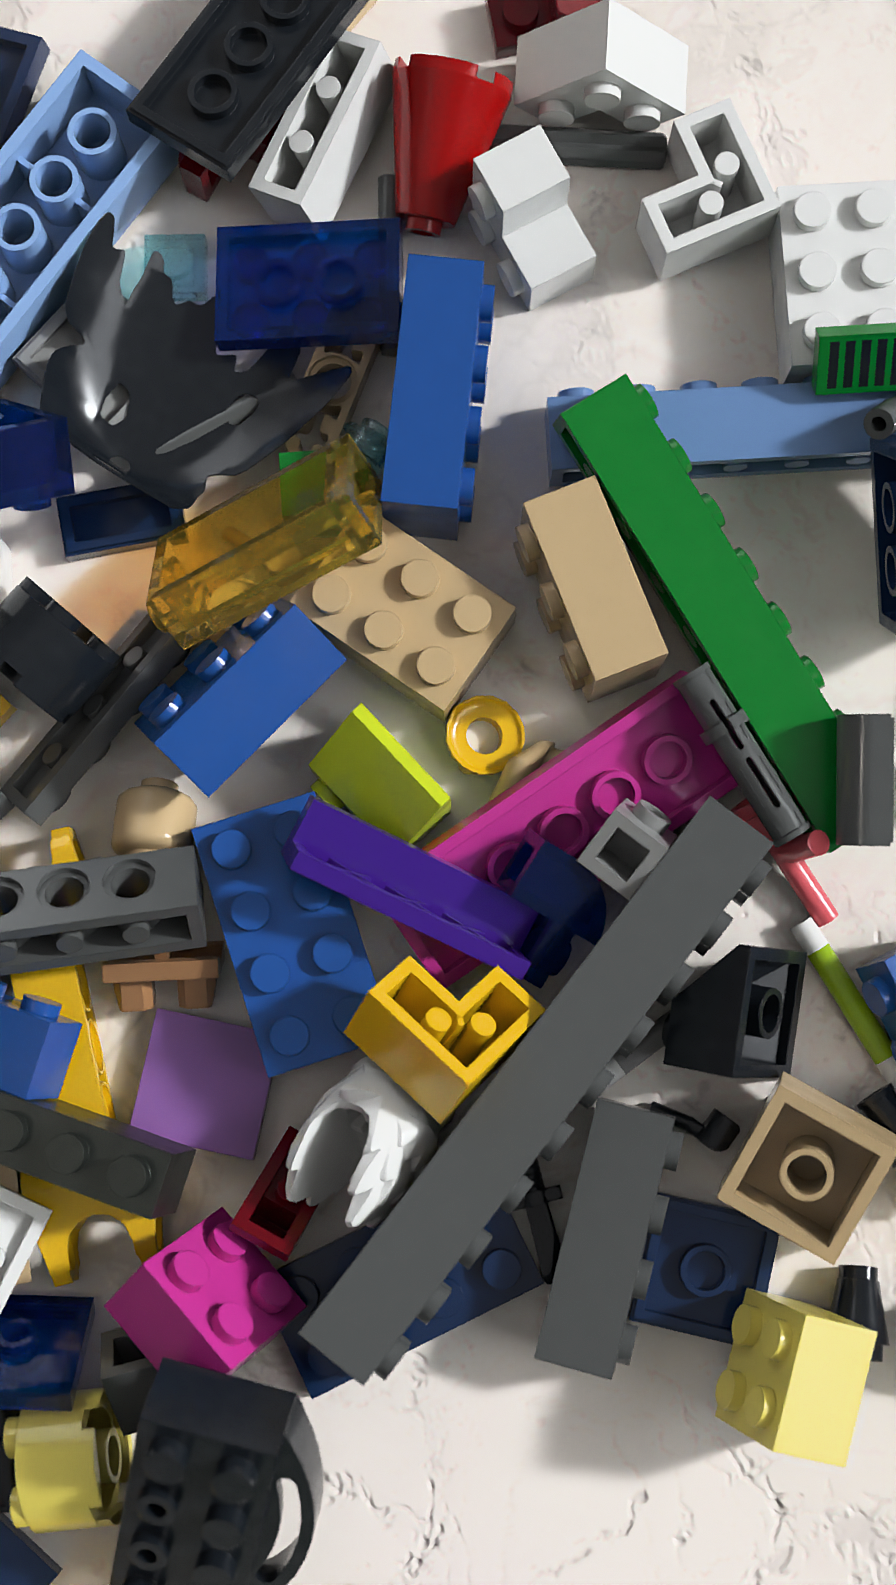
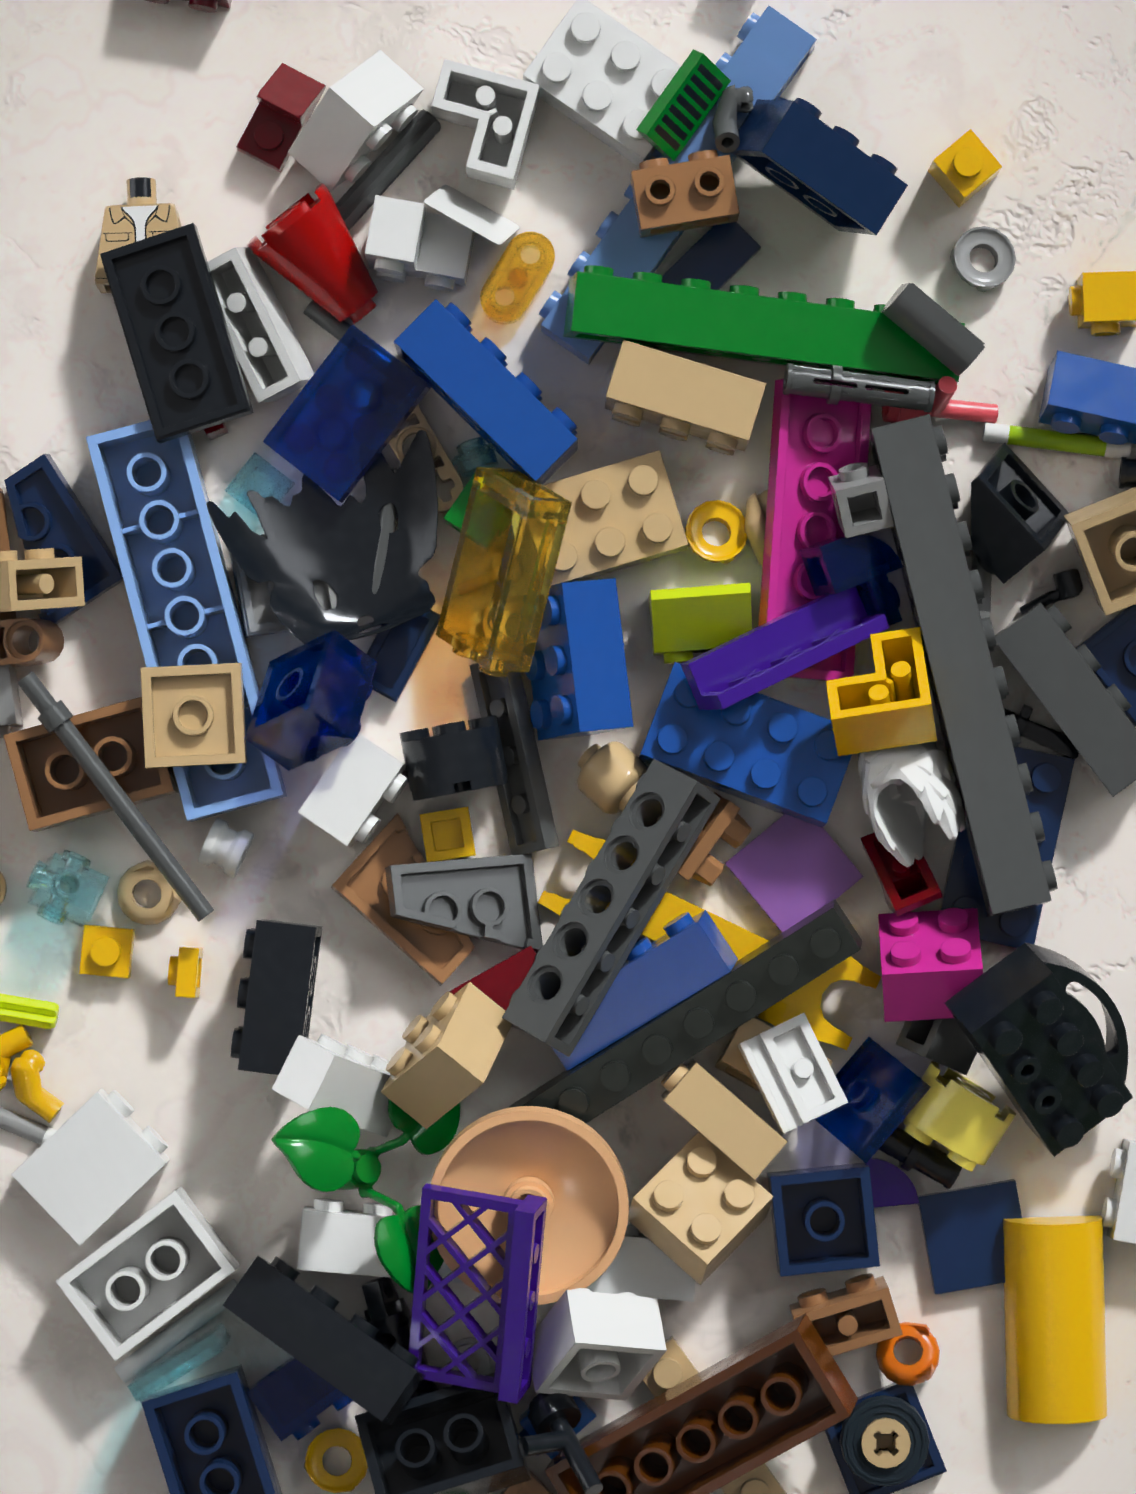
camera: 55 degrees left, 5 degrees up
(579, 355) = (517, 276): none -> clear yellow plate
(600, 249) = (472, 214): none -> white sticker
(761, 521) = (715, 256): none -> dark blue tile
(790, 426) = (684, 193): none -> medium nougat brick

